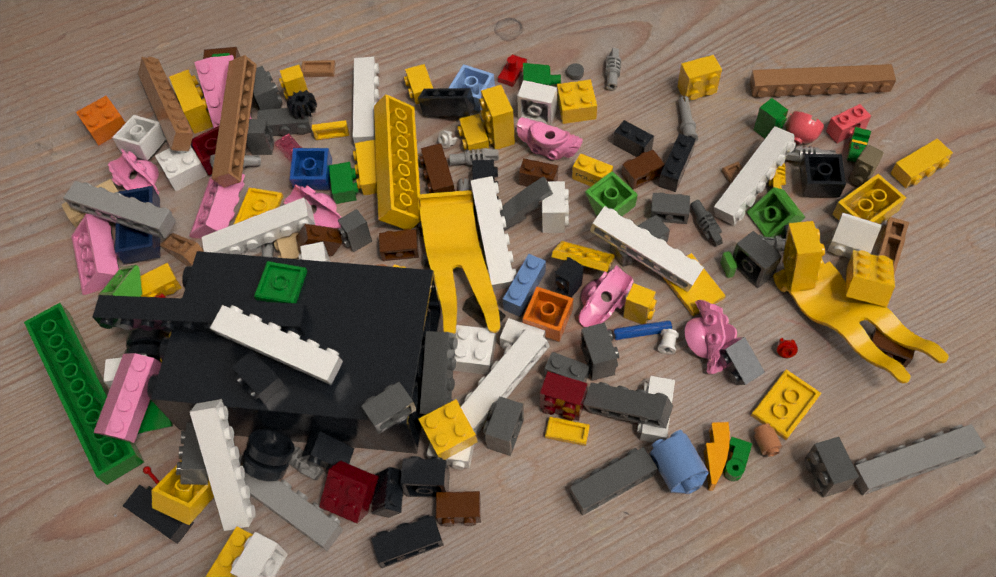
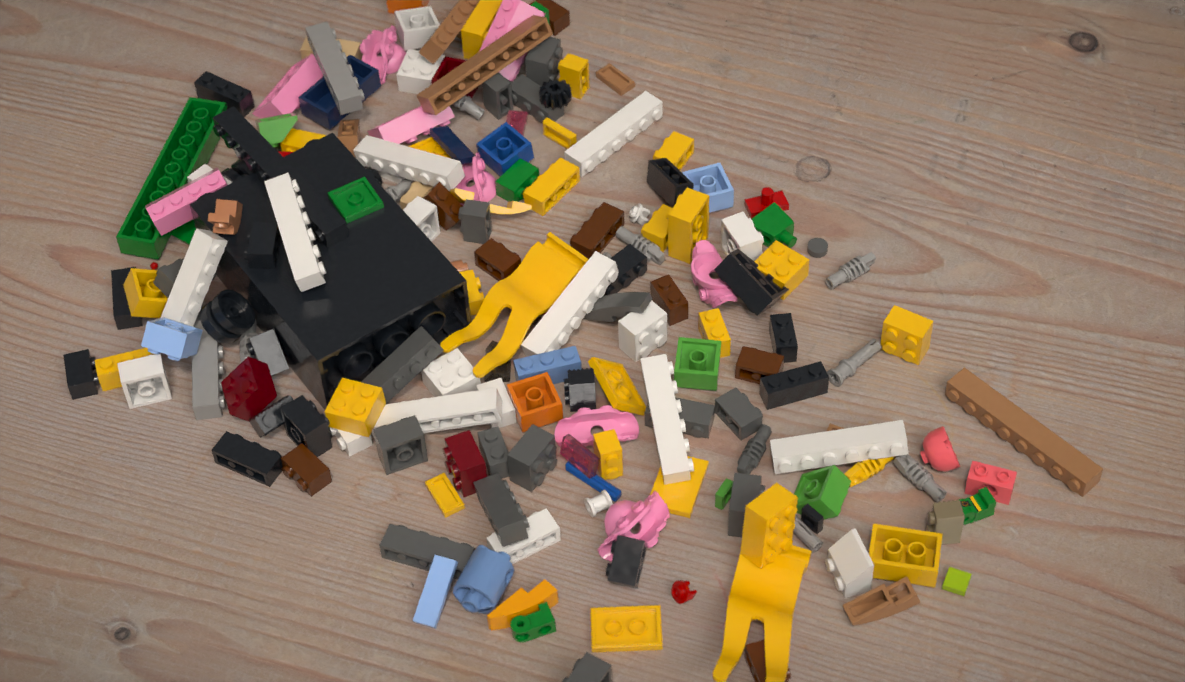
camera: 45 degrees right, 10 degrees down
(37, 299) = (218, 89): none -> black brick
(200, 382) = (226, 216): none -> nougat brick
(251, 512) = (171, 338): none -> light blue brick
(269, 194) = (452, 144): none -> dark blue tile
(362, 205) = (512, 207): none -> yellow slope
(388, 407) = (315, 337): dark grey brick -> none
(397, 163) = (571, 195): yellow brick -> none
(582, 121) = (749, 283): none -> black wedge
(625, 321) = (579, 456): none -> clear pink plate
(656, 502) = (435, 591): none -> light blue tile
(767, 440) = (573, 633): nougat brick -> none
(768, 116) = (918, 417): green brick -> none
(822, 175) = (900, 497): black brick -> none
(870, 278) = (813, 598): yellow brick -> none
(910, 194) = (956, 581): none -> lime tile
(921, 163) = (1009, 569): yellow brick -> none

